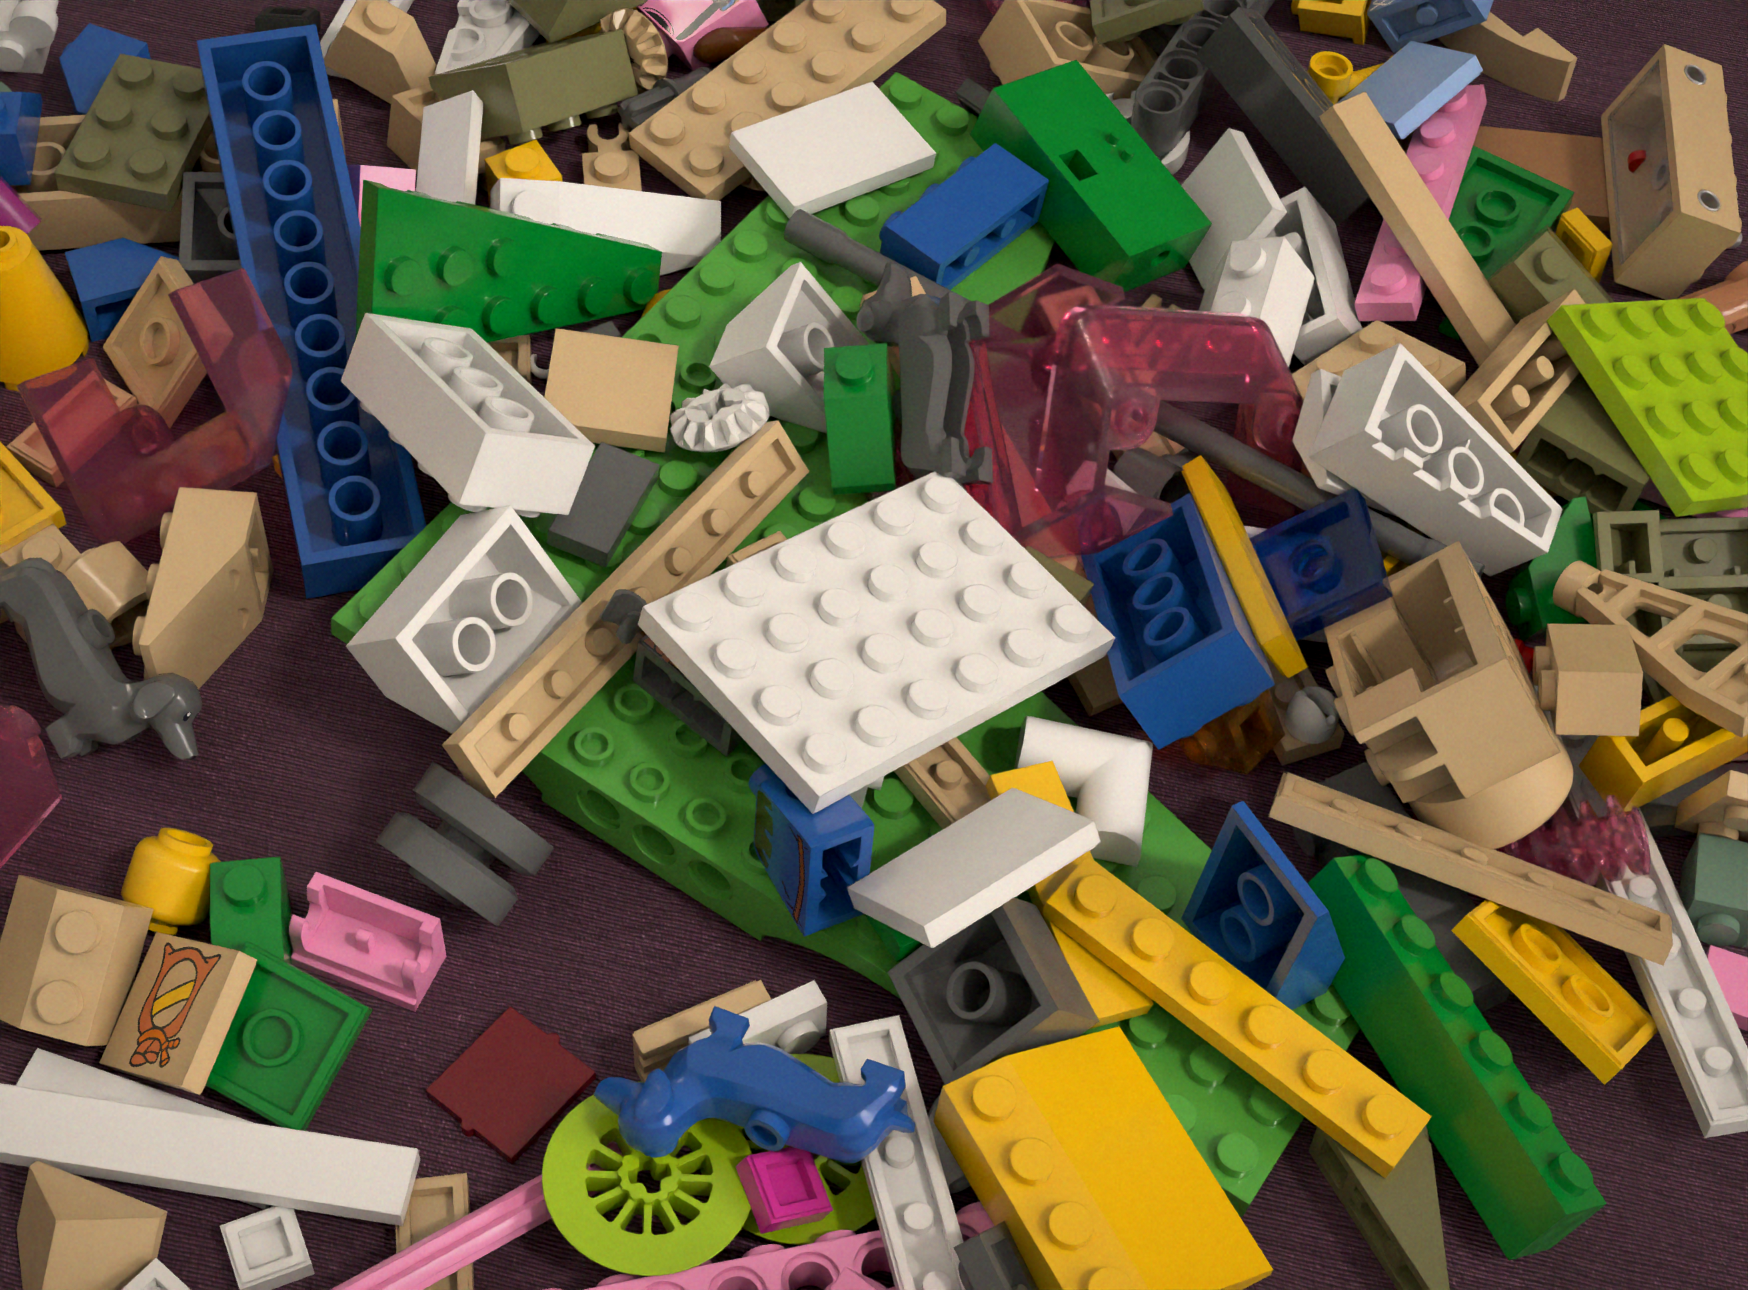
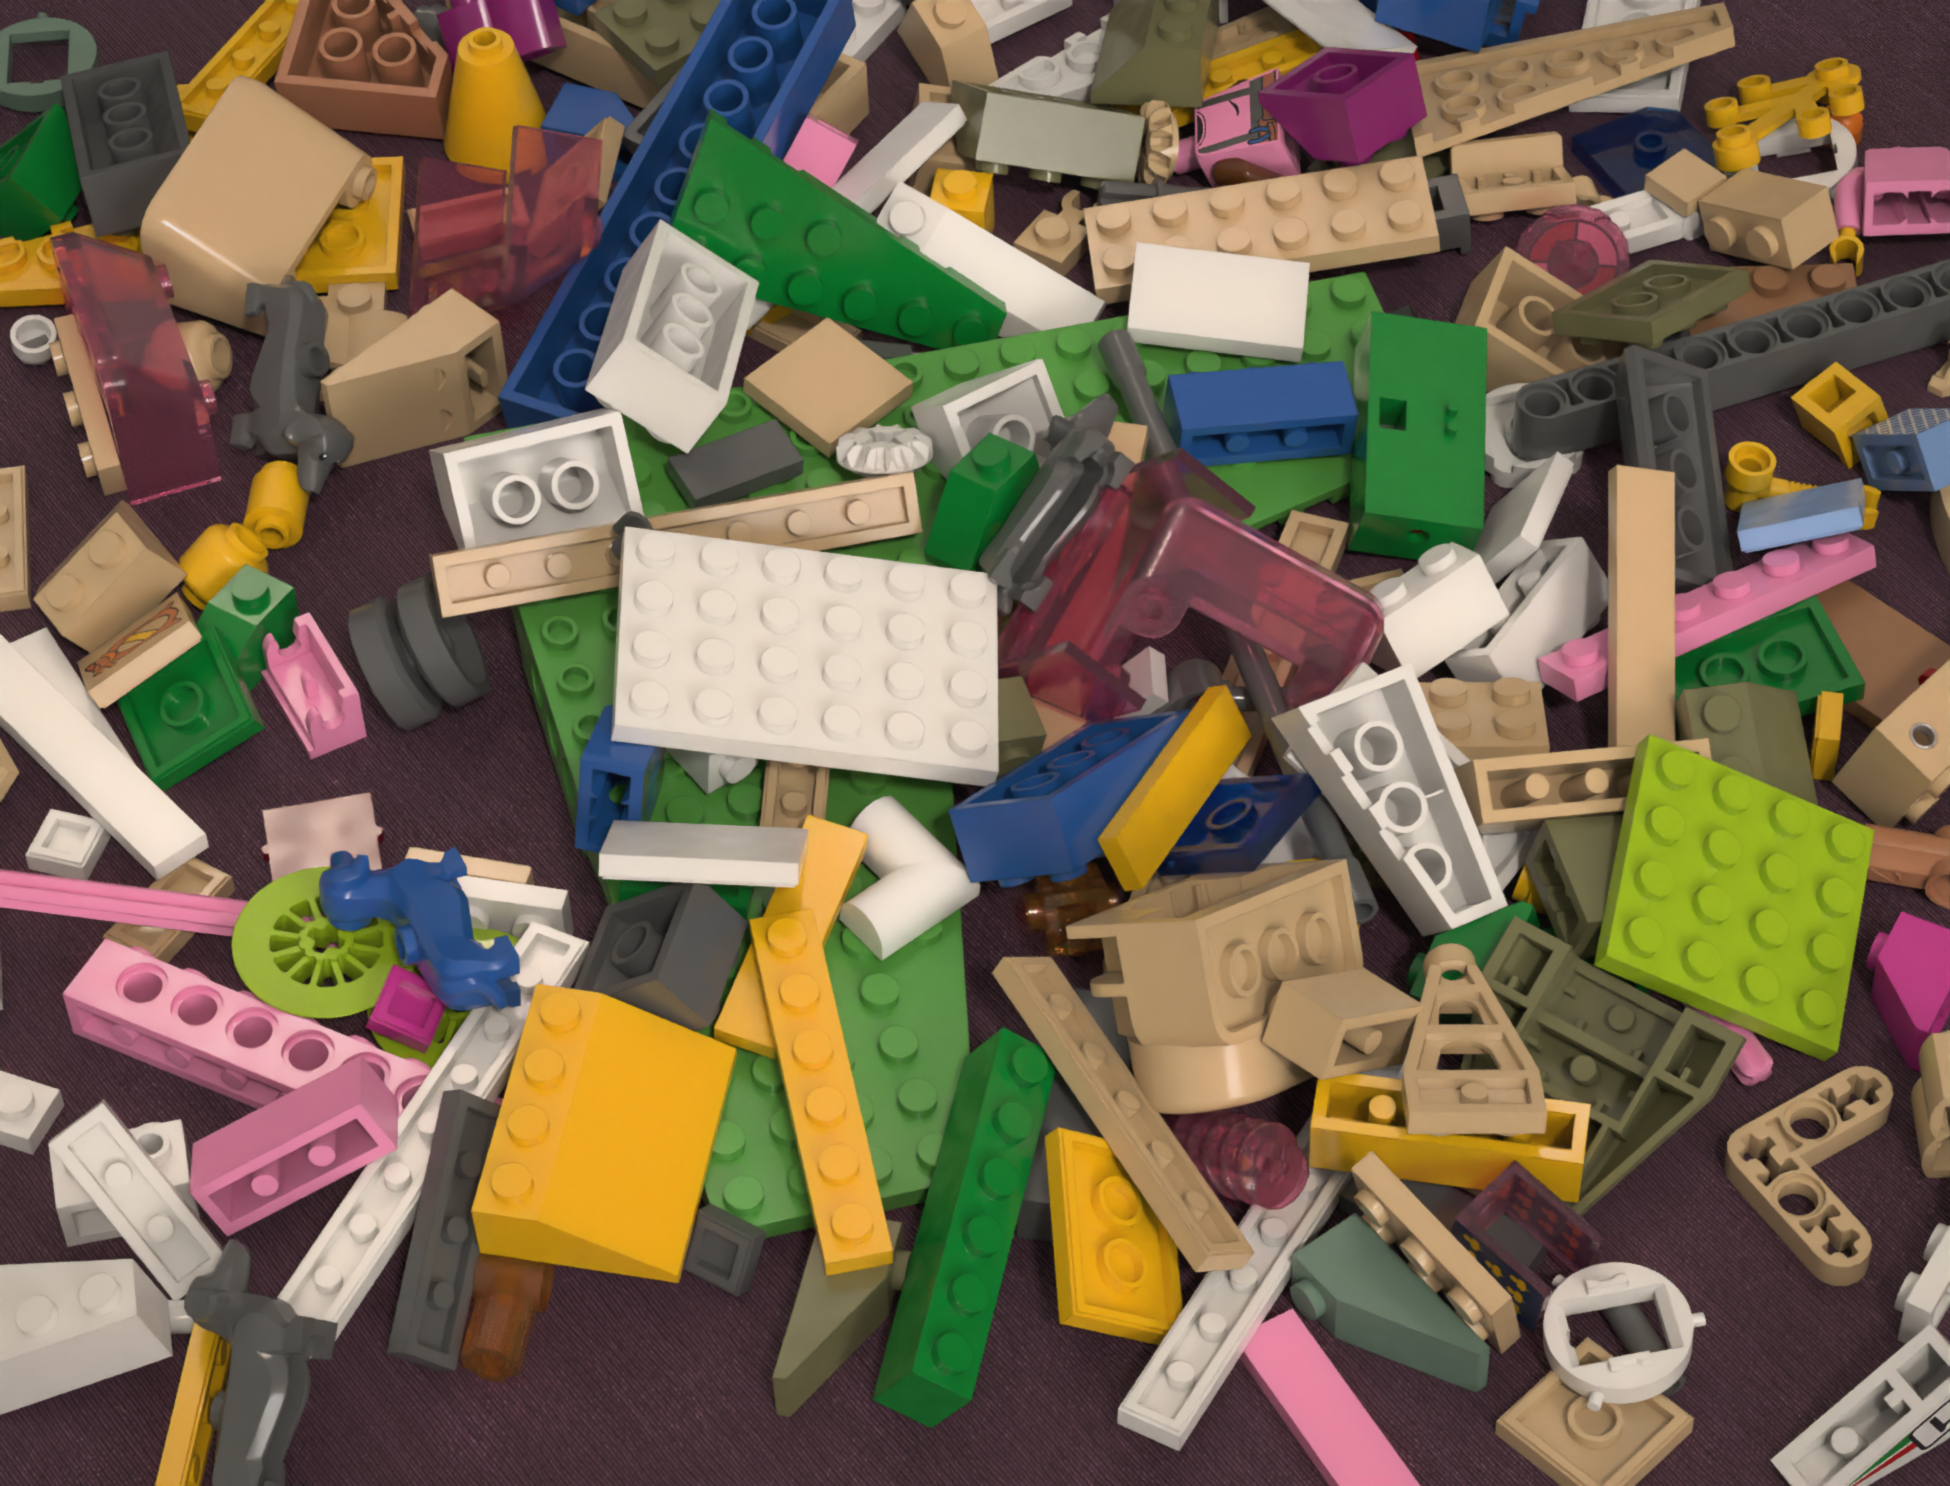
camera: 45 degrees right, 5 degrees down
(158, 788) = (277, 505): none -> yellow brick
(1263, 914) = (910, 1035): blue slope -> none
(1267, 1209) = (724, 1250): none -> dark grey tile

